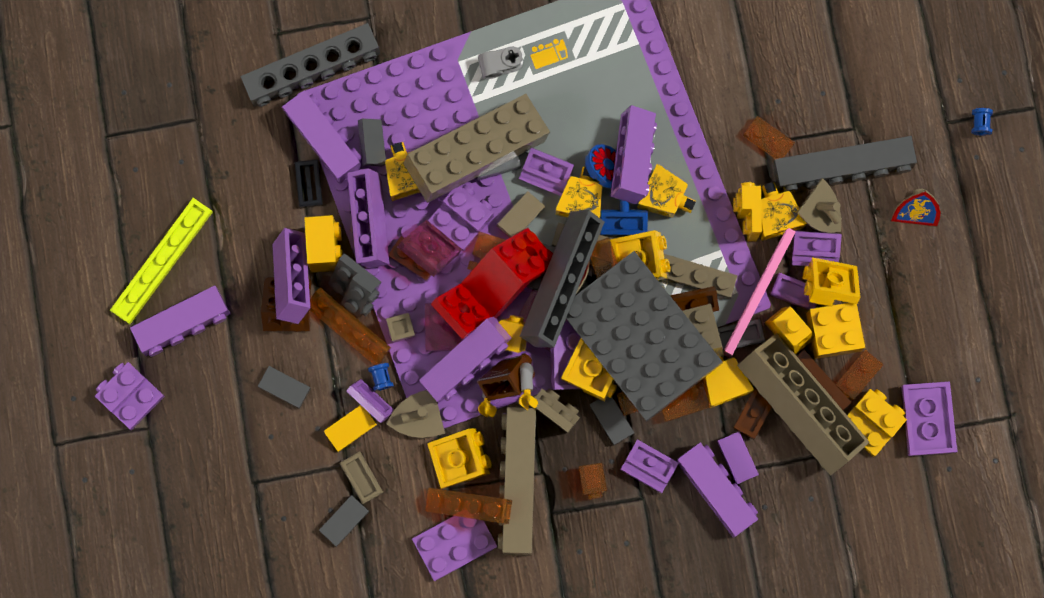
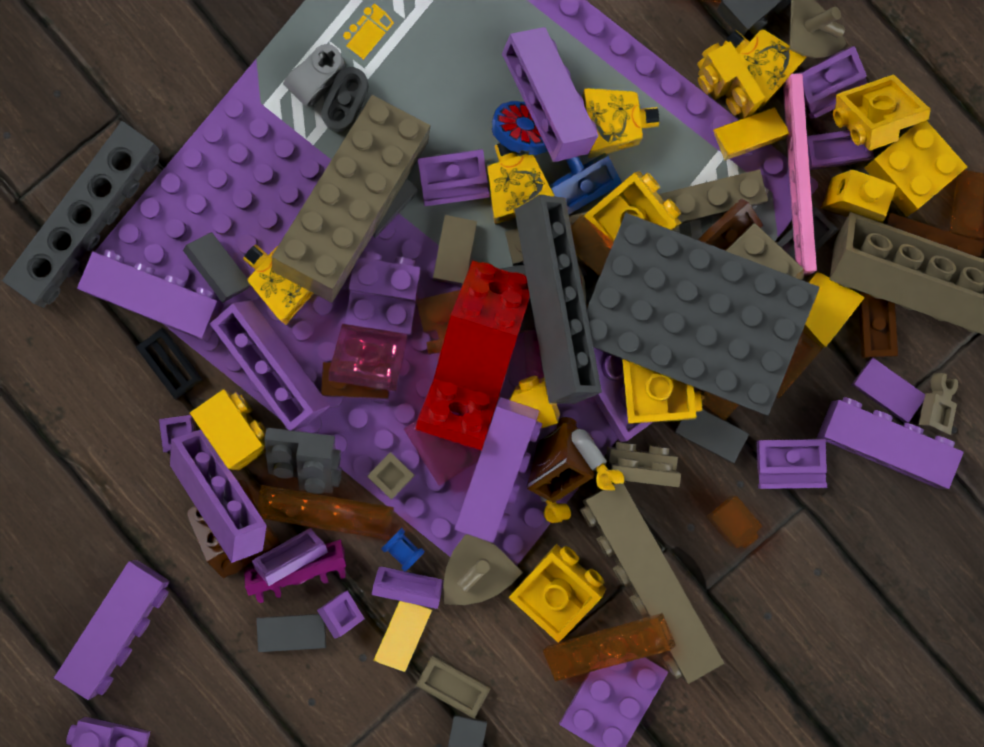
camera: 35 degrees left, 5 degrees up
(161, 261) = (44, 568): neon yellow tile -> none
(289, 223) = (175, 427): none -> medium lavender tile
(309, 350) = (330, 561): none -> magenta plate
(311, 339) = (289, 556): none -> medium lavender tile
(320, 392) = (340, 614): none -> medium lavender plate
(507, 85) = (343, 100): none -> dark grey plate
(745, 250) = (750, 133): none -> yellow slope
(760, 486) = (937, 408): none -> dark tan plate

